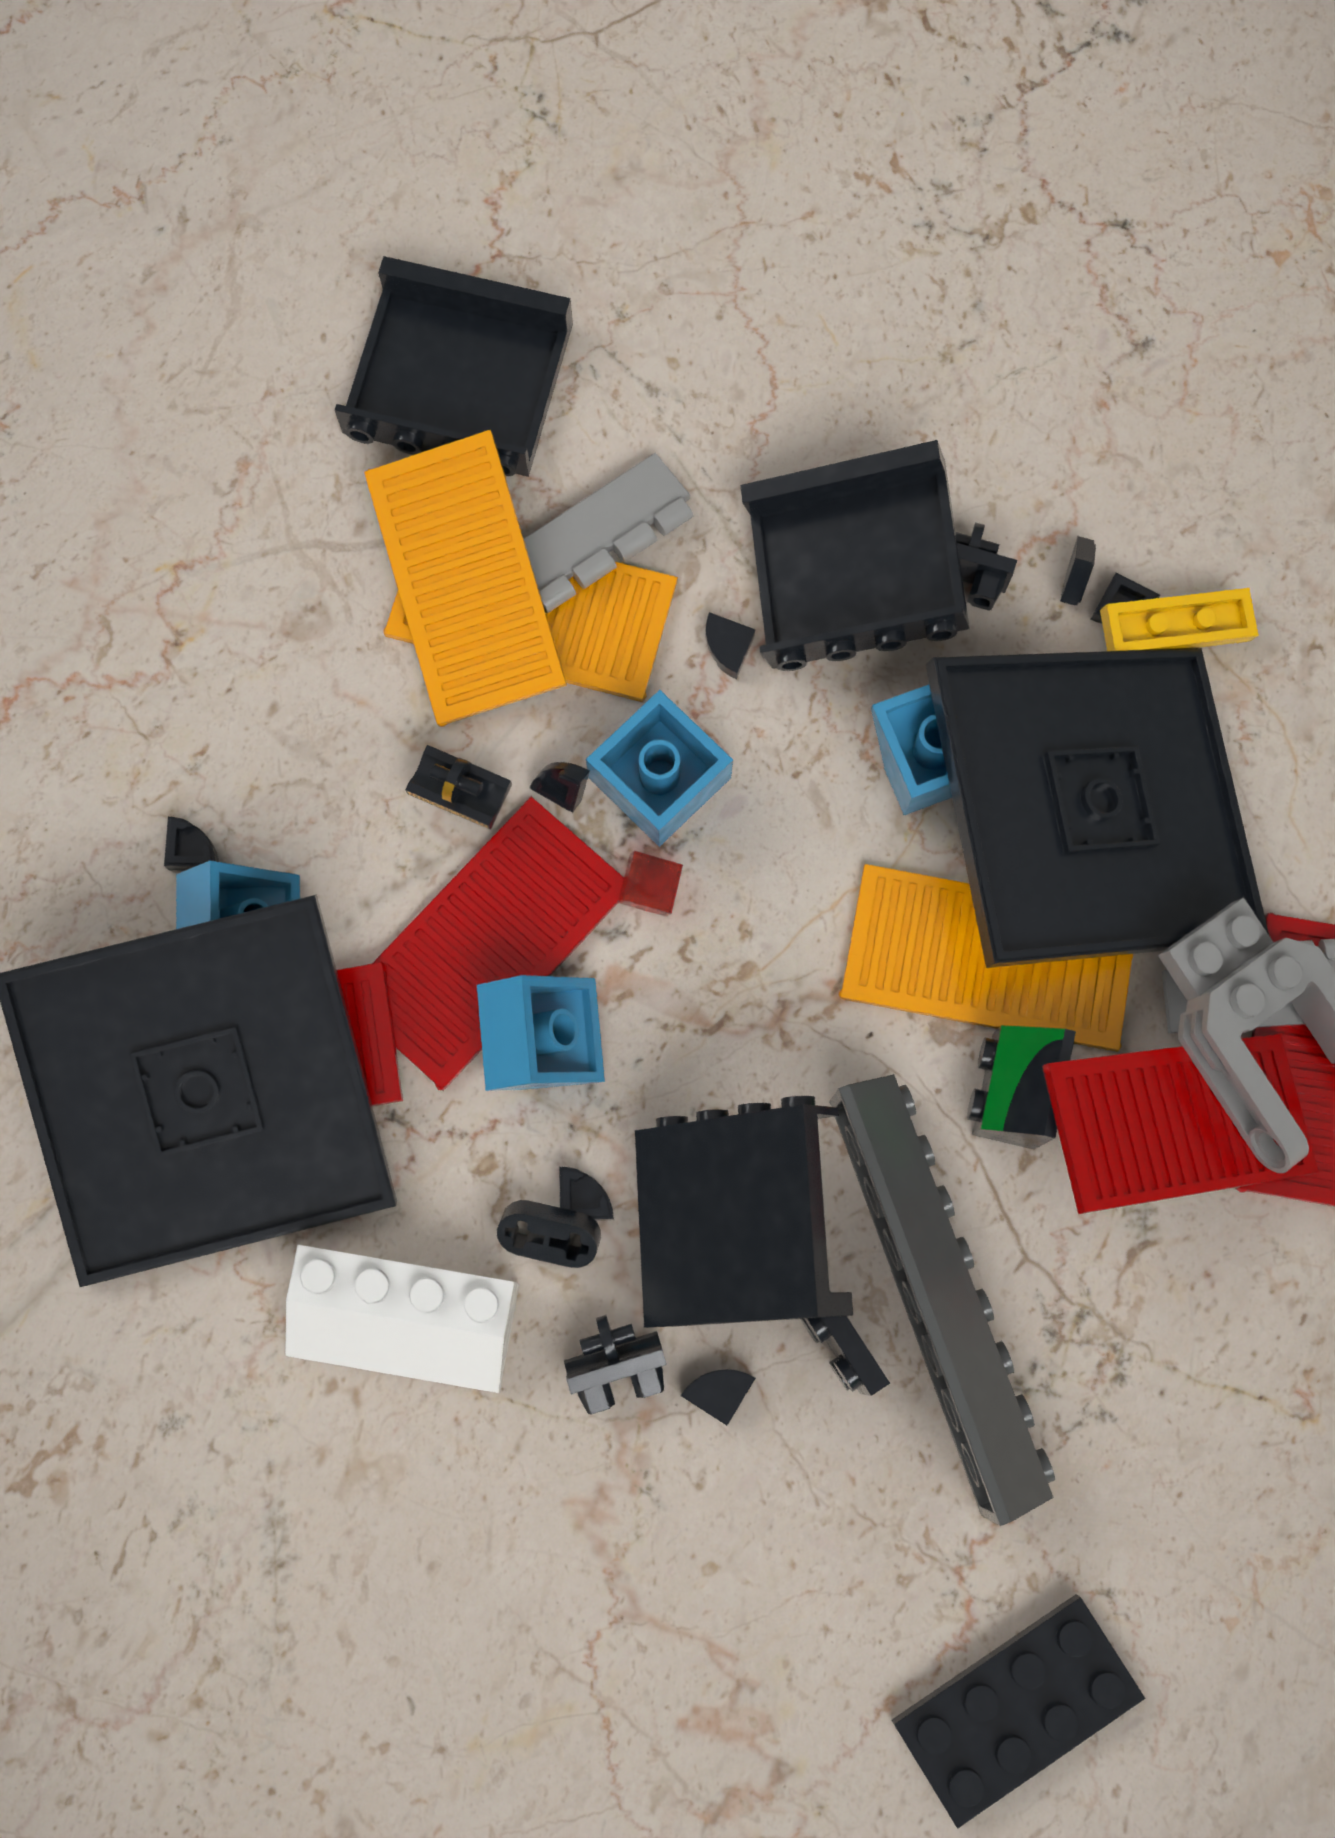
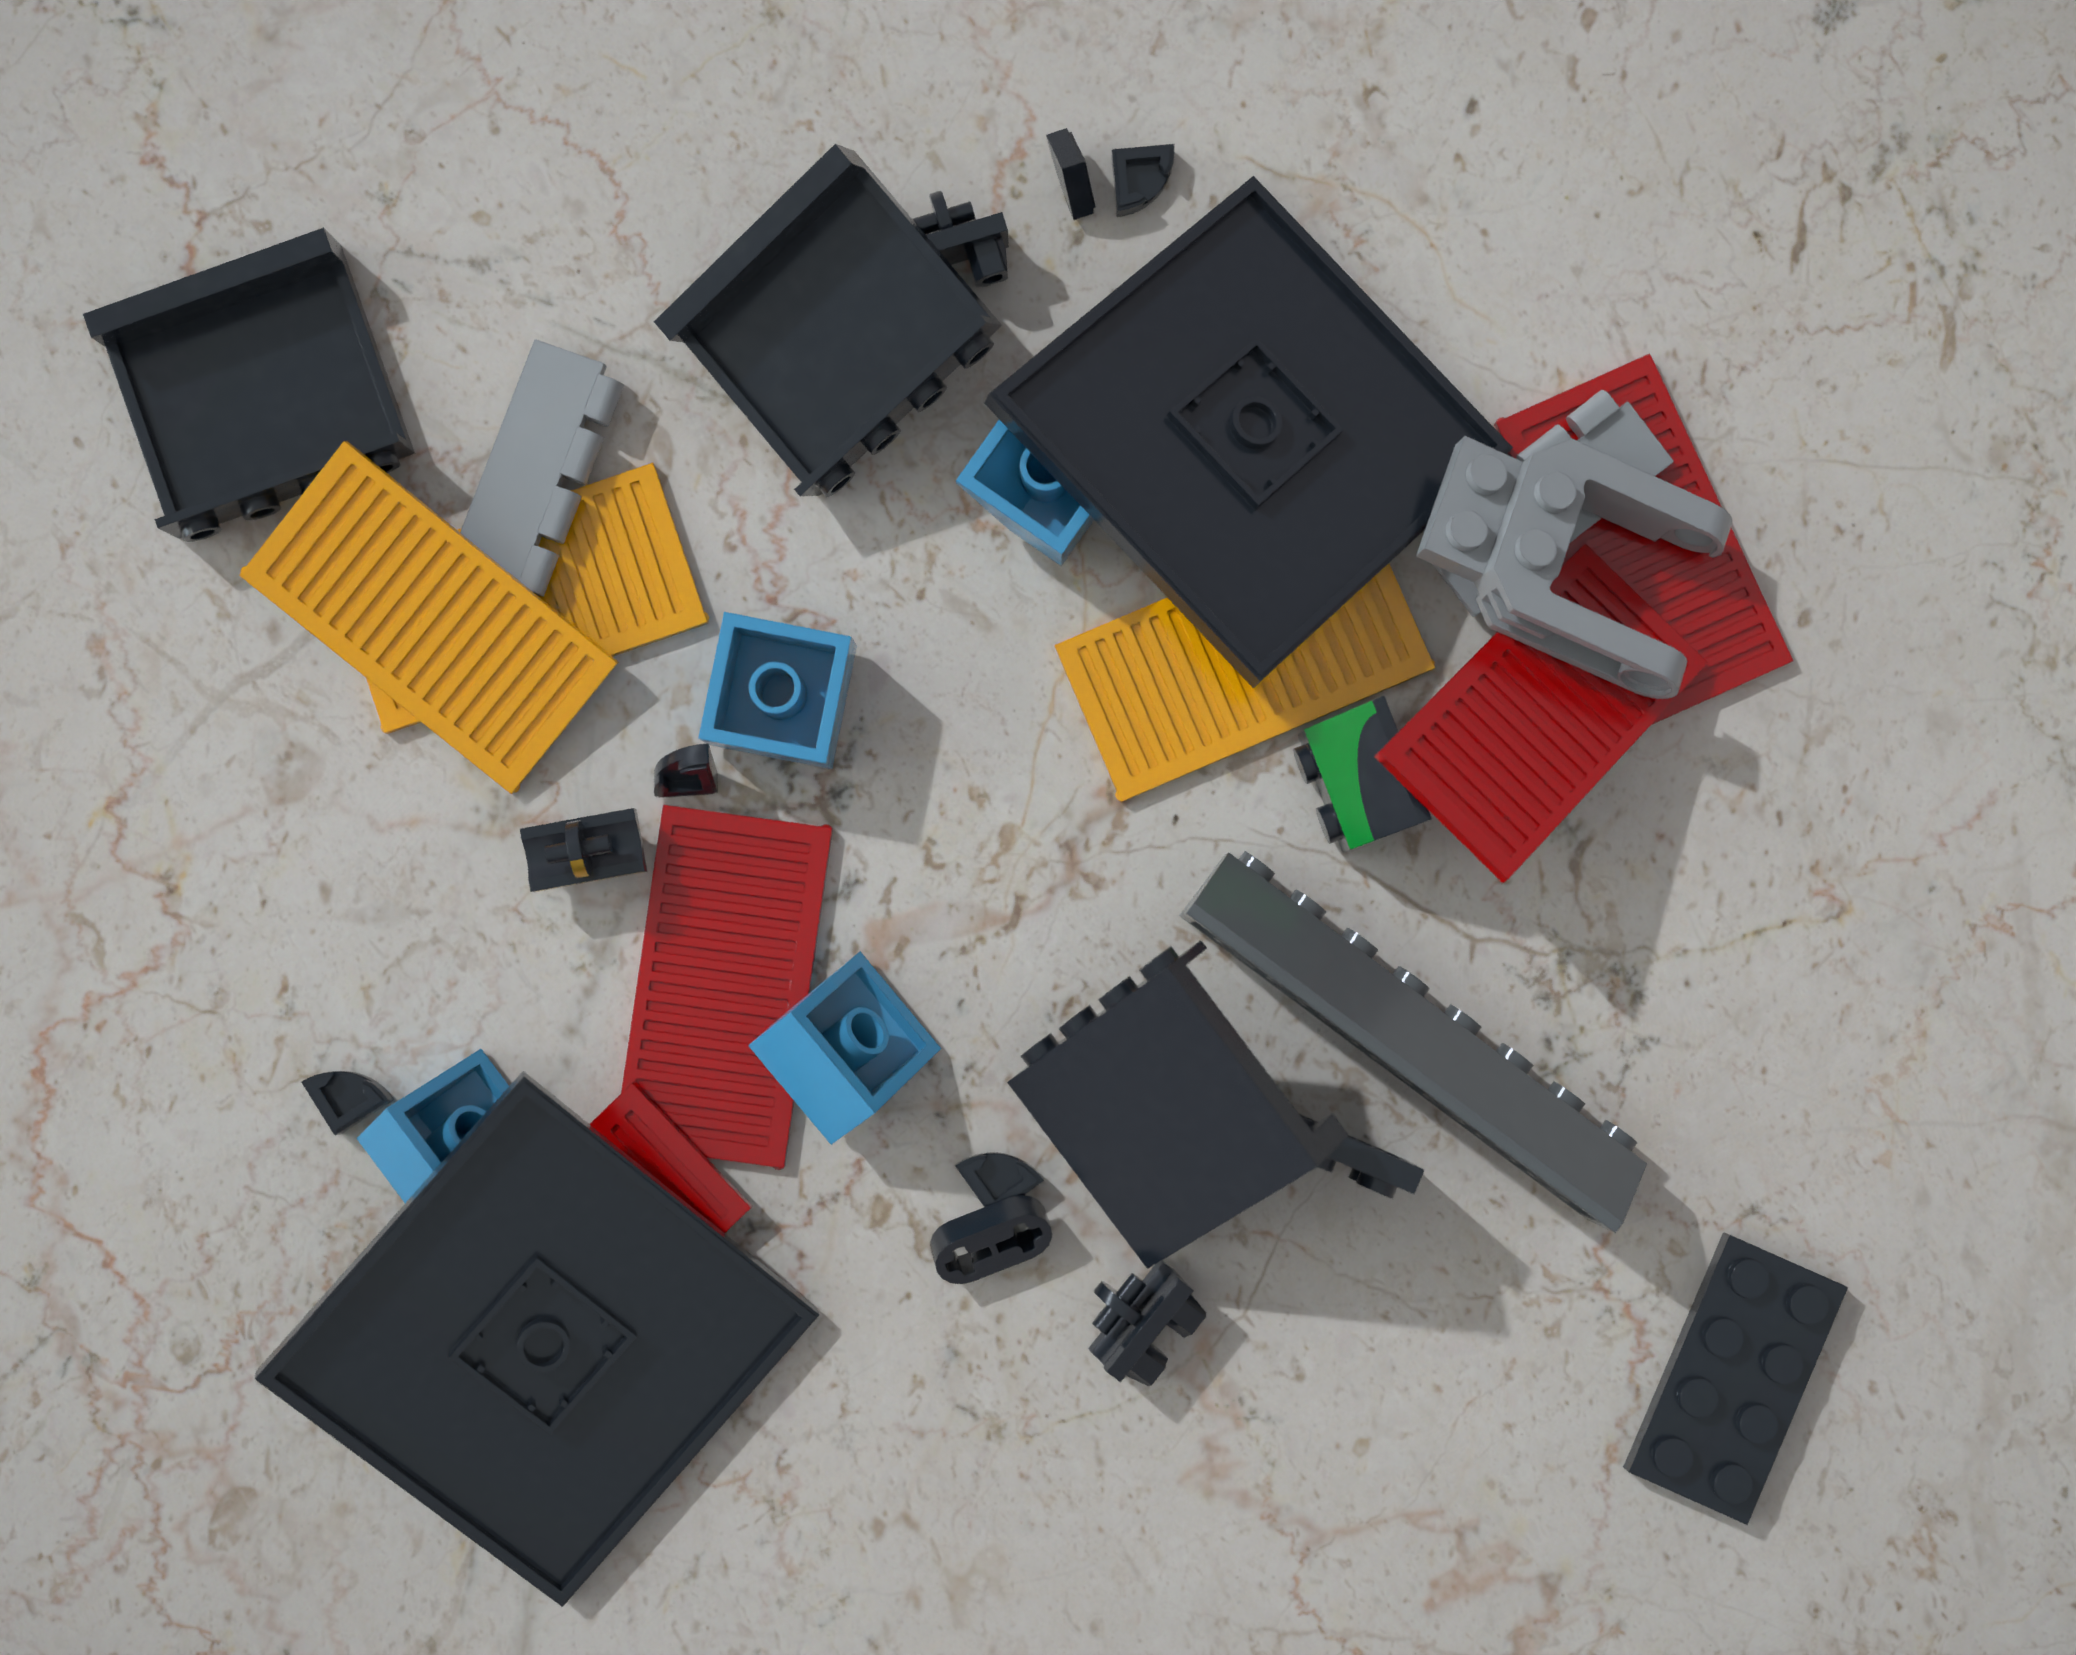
camera: 30 degrees left, 10 degrees up
(399, 1318) = (899, 1419): white slope -> none
(650, 883) = (849, 815): clear red plate -> none
(719, 1392) = (1260, 1277): black tile -> none
(728, 643) = (755, 500): black tile -> none
(1180, 621) = (1213, 164): yellow plate -> none

